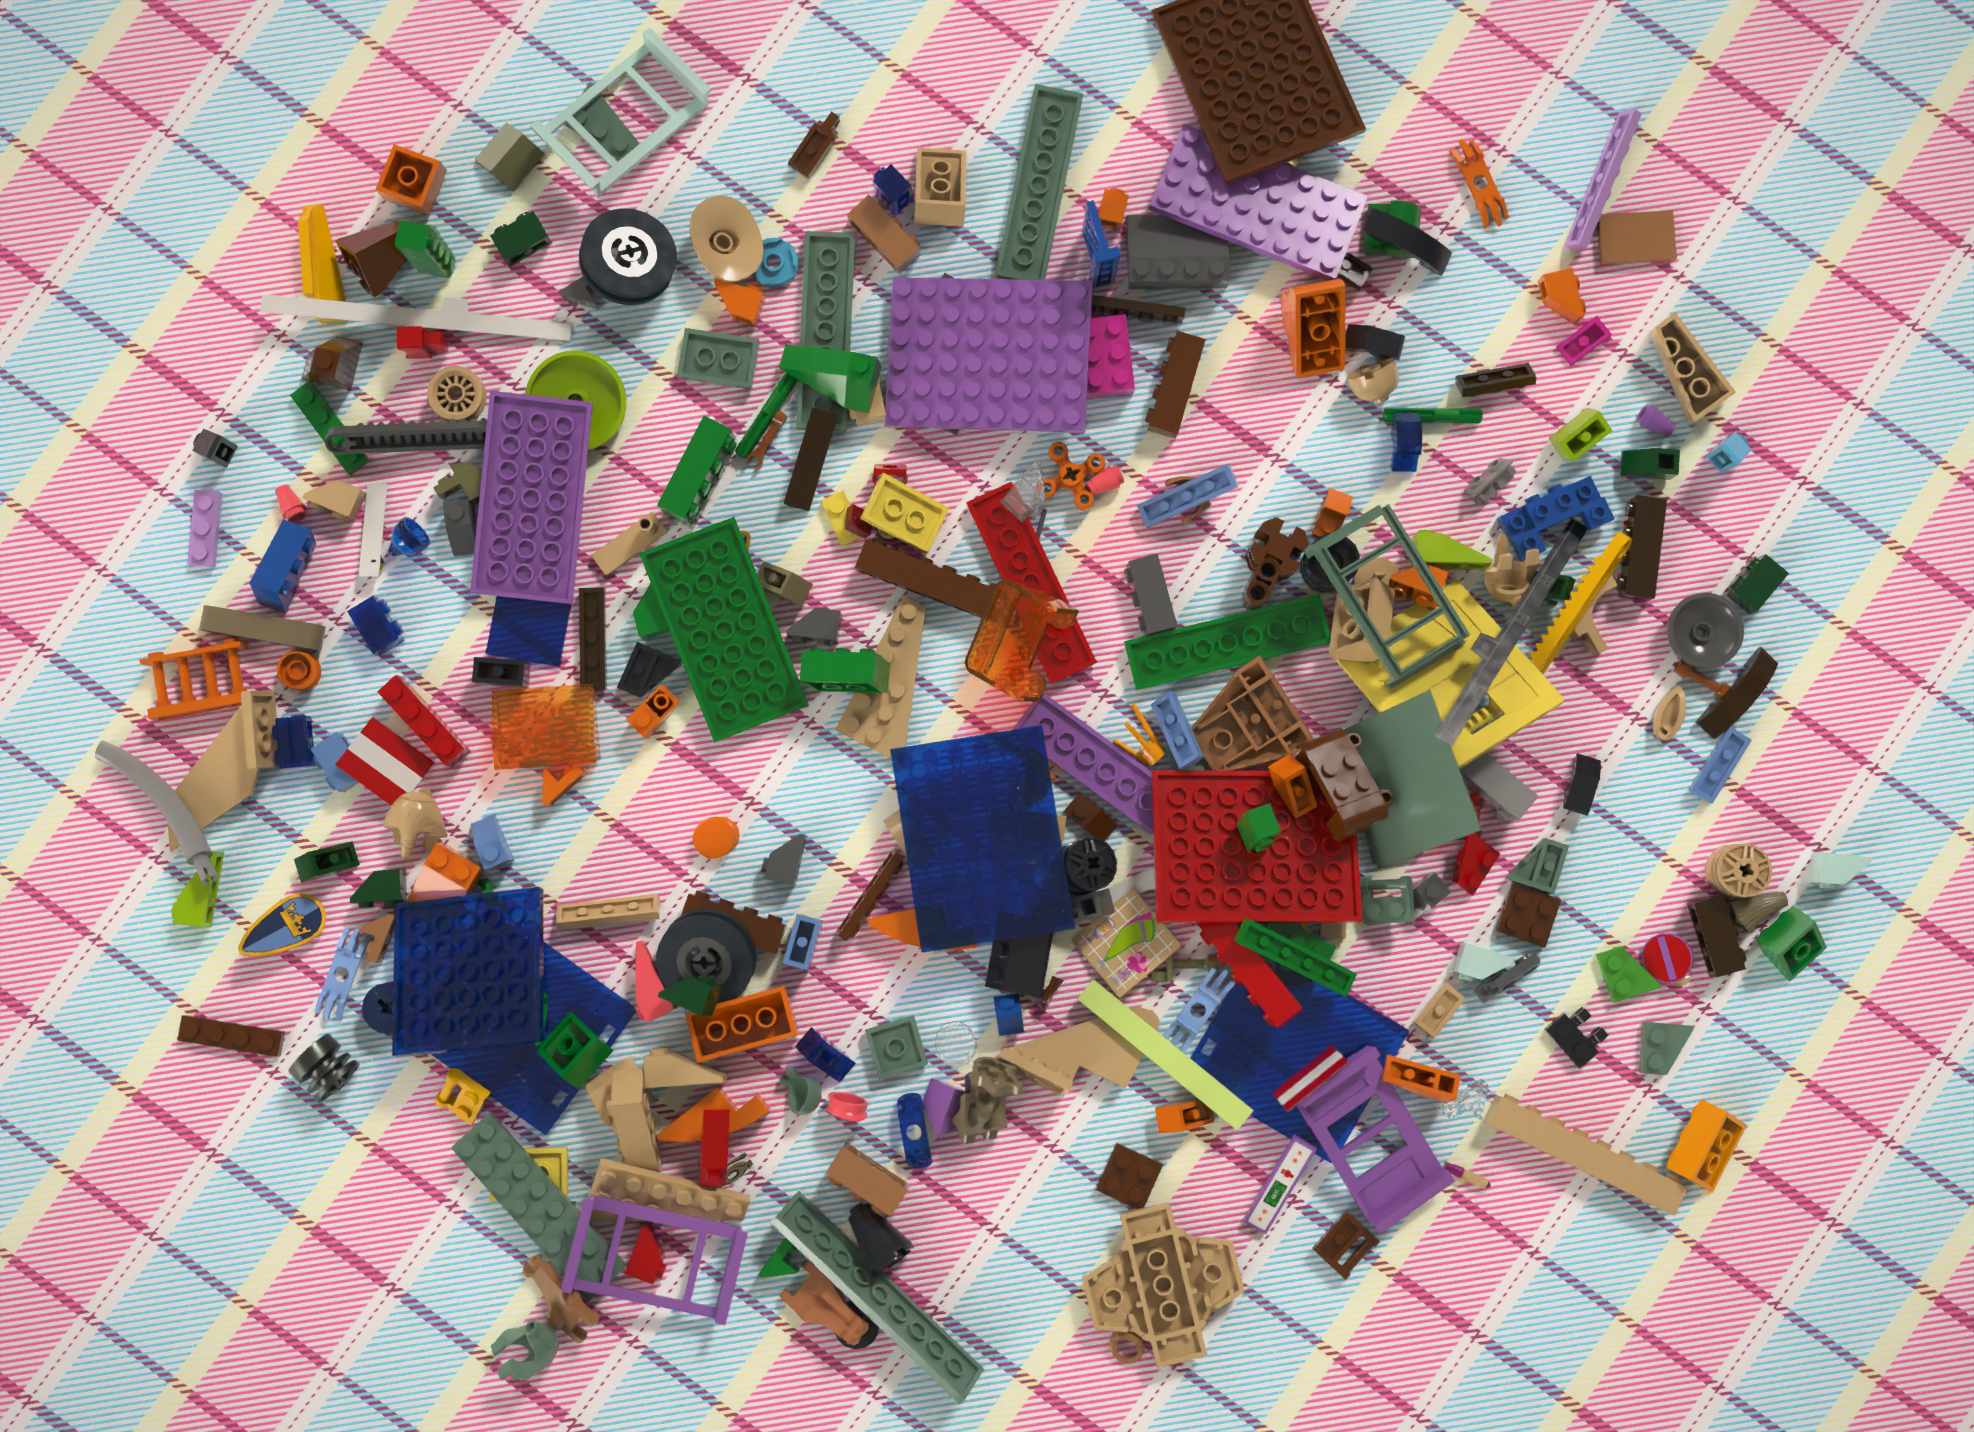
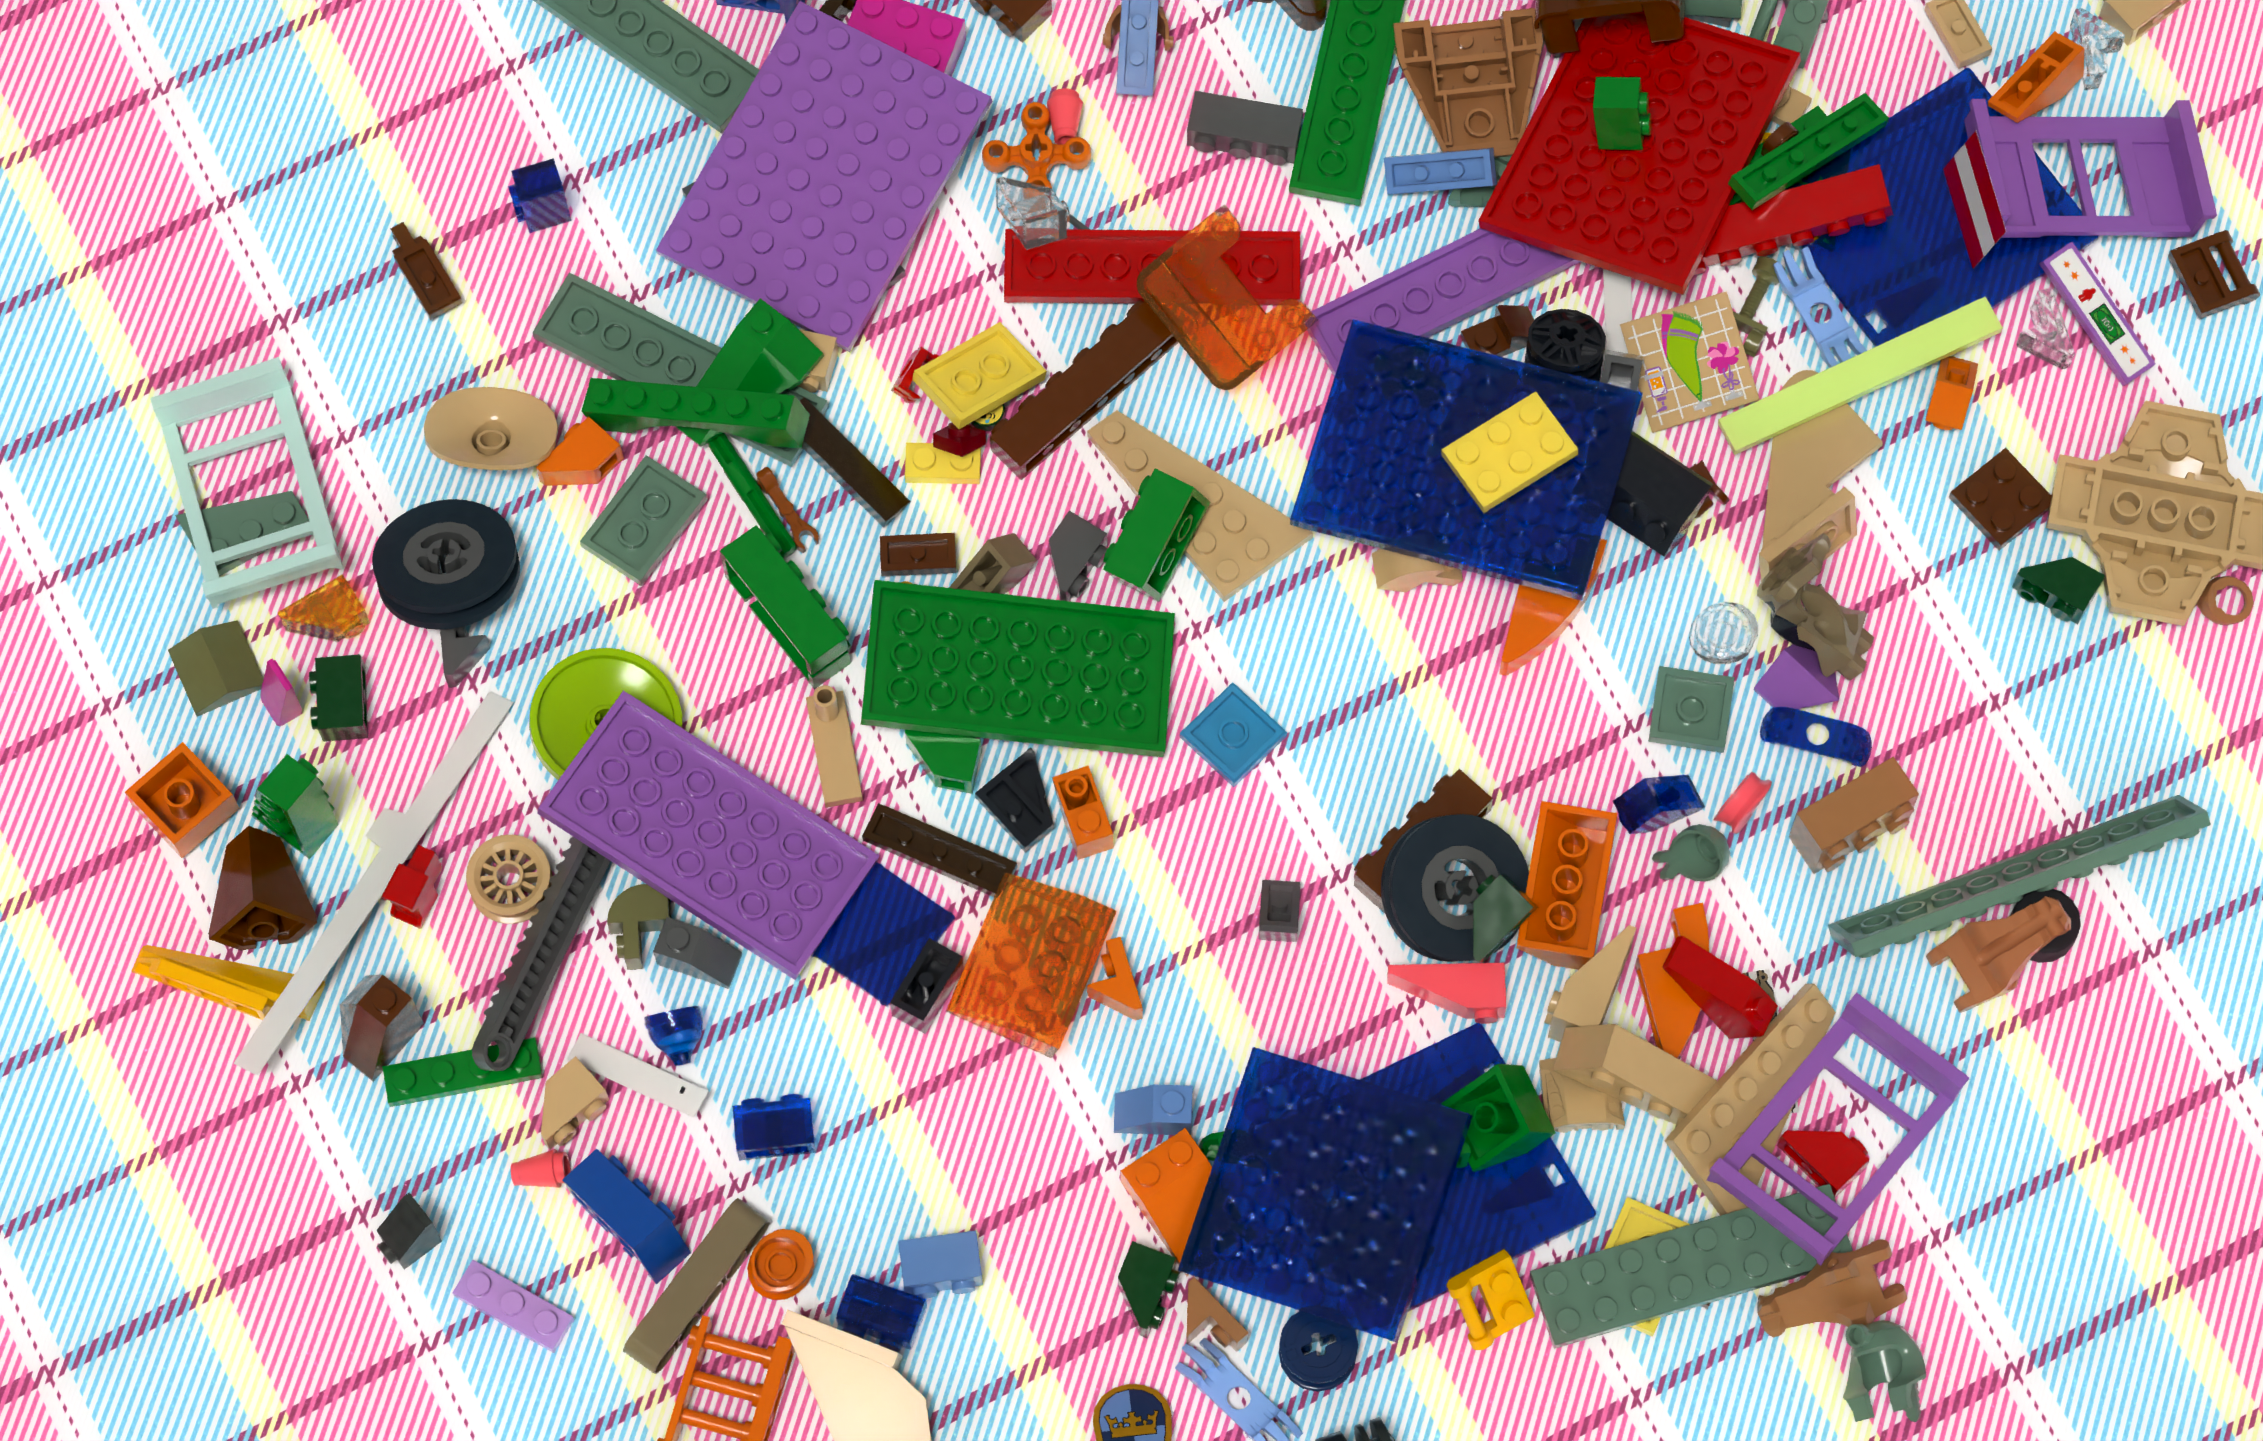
camera: 60 degrees left, 15 degrees down
(326, 861) = (1070, 1346): dark green slope -> none
(384, 762) = (973, 1199): red sticker -> none
(412, 815) = (1075, 1182): tan piece -> none
(423, 721) = (941, 1122): red brick -> none
(505, 203) = (279, 695): none -> dark pink slope
(571, 204) = (326, 613): none -> clear yellow slope
(608, 911) = (1328, 994): tan plate -> none
(647, 858) = (1279, 910): none -> dark grey slope
(715, 837) = (1293, 812): orange piece -> none
(751, 776) = (1233, 734): none -> dark azure tile
(774, 532) = (918, 554): none -> reddish brown plate
(778, 1263) = (1911, 989): green slope -> none
(785, 272) = (560, 376): medium azure tile -> none
(785, 861) = (1372, 736): dark grey slope -> none
(791, 355) = (641, 405): none -> green arch
(803, 941) = (1492, 758): medium blue brick -> none
(864, 904) = (1475, 659): reddish brown plate -> none
(878, 1239) = (1939, 843): black cone -> none
(884, 233) = (590, 238): medium nougat brick -> none
(940, 187) = (579, 137): tan slope -> none
(994, 864) = (1509, 452): none -> light yellow plate
(1008, 1014) = (1715, 544): blue brick -> none
(1085, 1242) = (2061, 586): none -> dark green slope
(1150, 751) = (1448, 220): light orange plant -> none
(1250, 1163) = (2049, 336): none -> clear slope
(1293, 785) = (1579, 57): orange slope -> none
(1294, 935) = (1778, 137): none -> reddish brown tile
(1465, 1176) = (2192, 90): piece -> none

